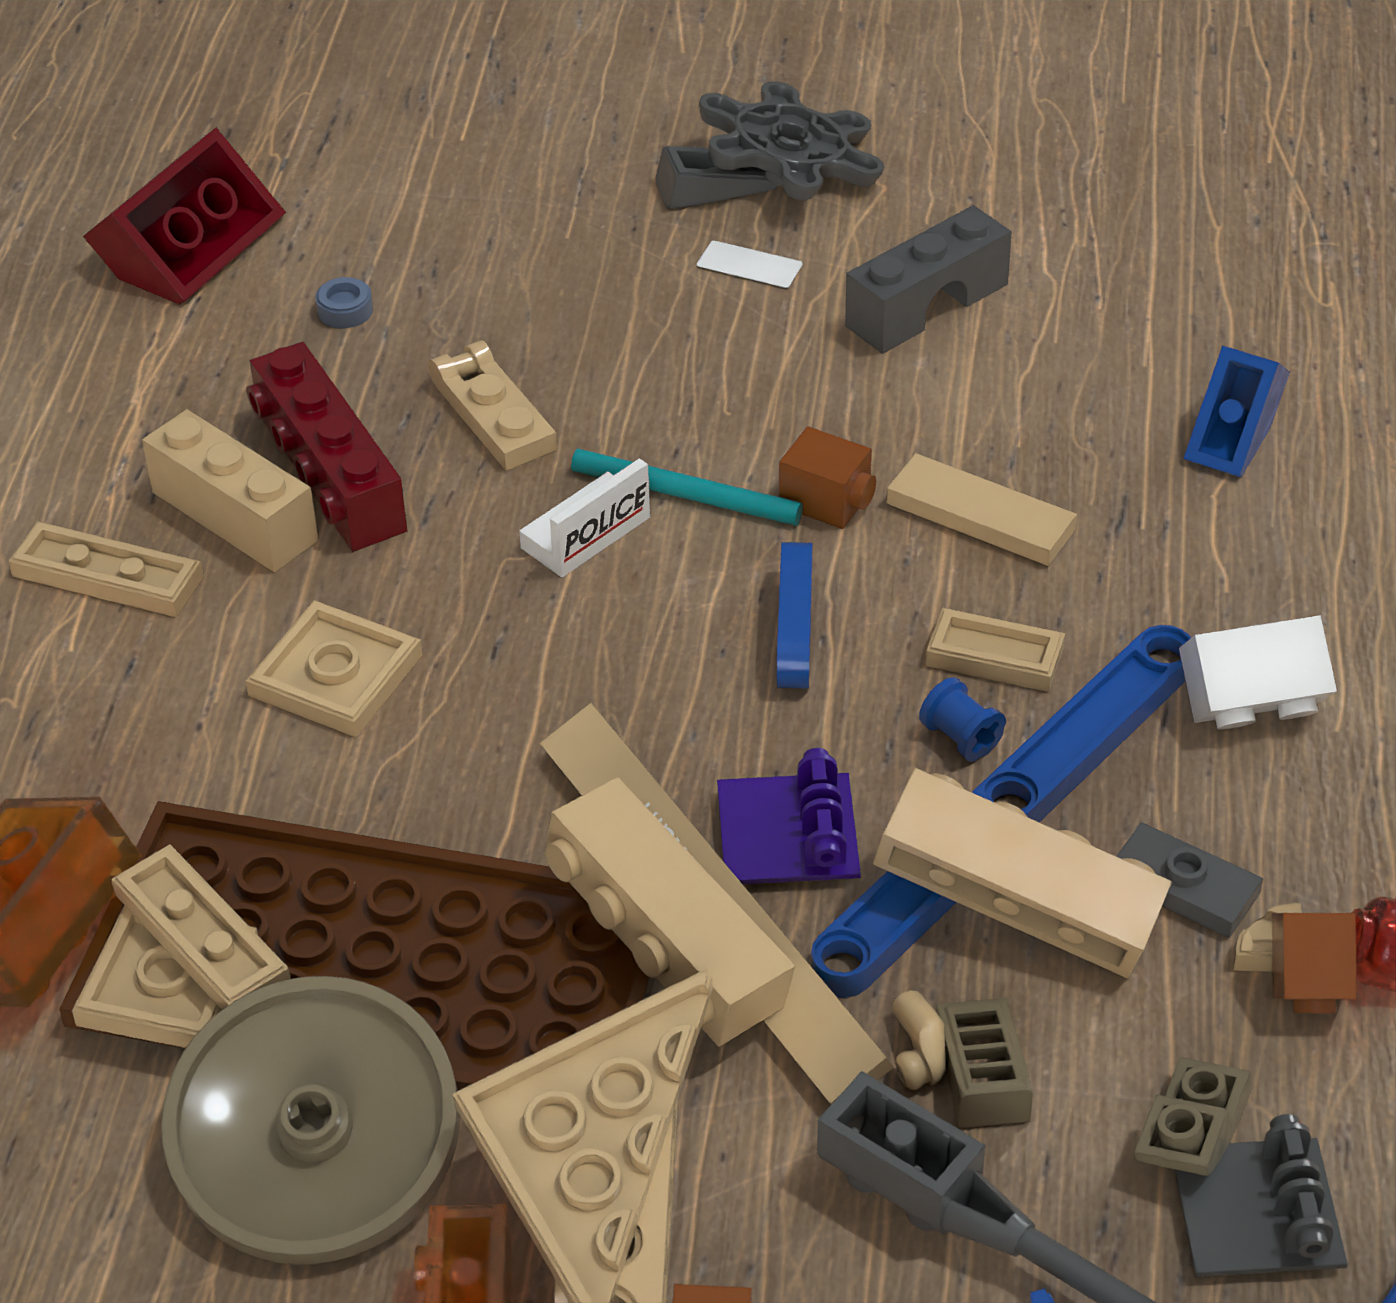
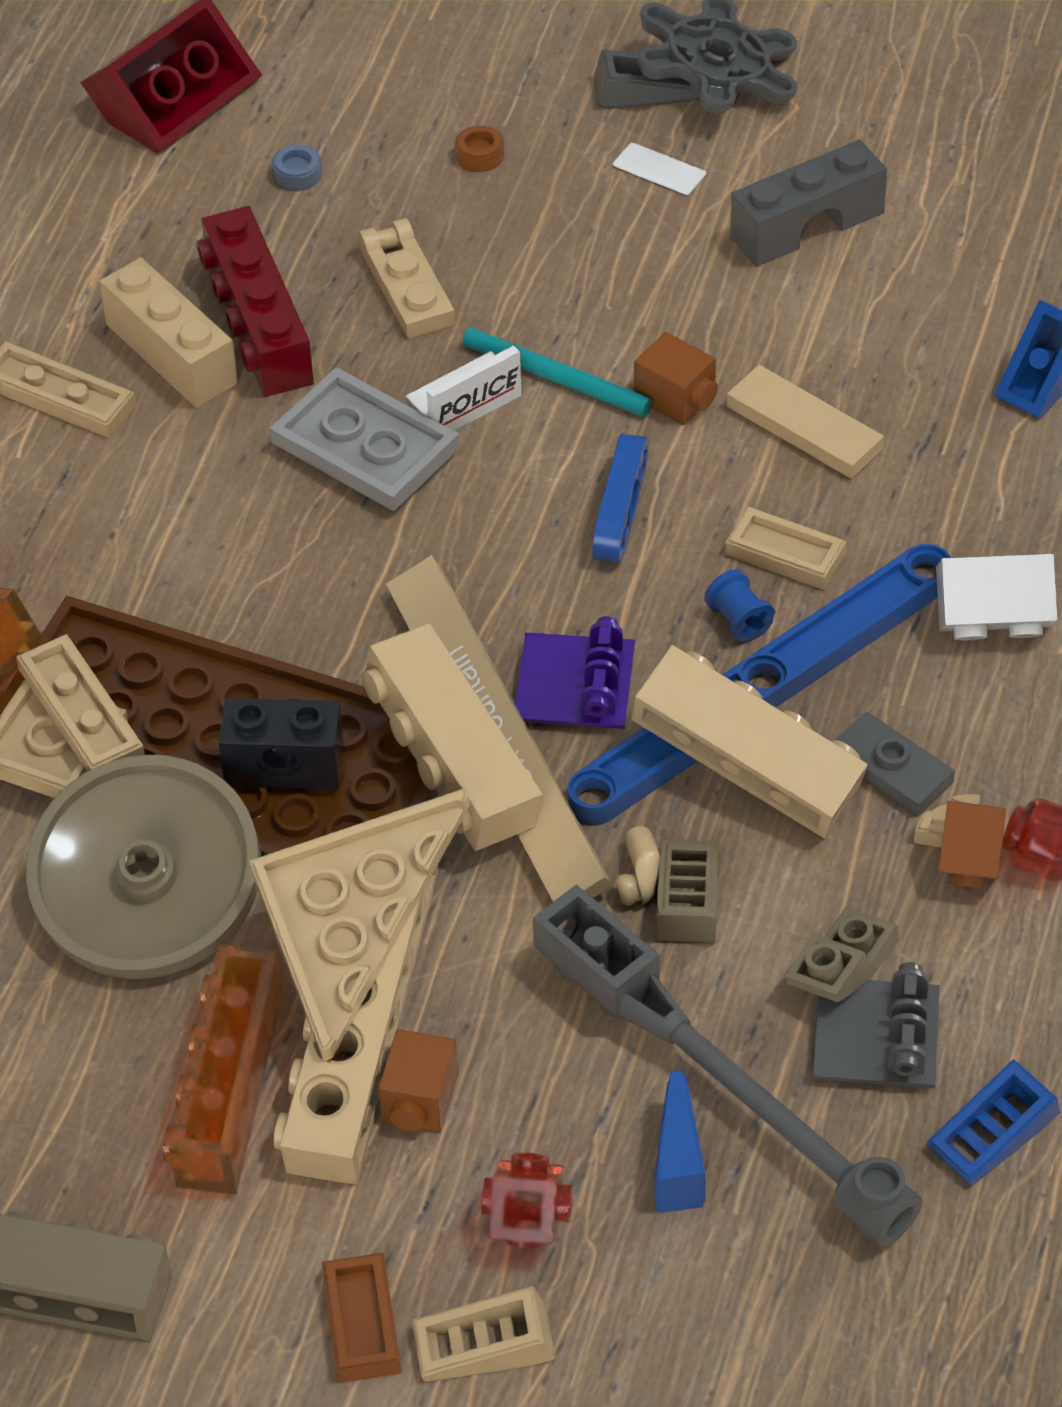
camera: 10 degrees right, 5 degrees up
(334, 668) = (230, 498): tan tile -> none
(459, 944) = (281, 743): none -> black brick
(481, 583) = (364, 438): none -> light grey plate
(546, 262) = (479, 148): none -> dark orange tile

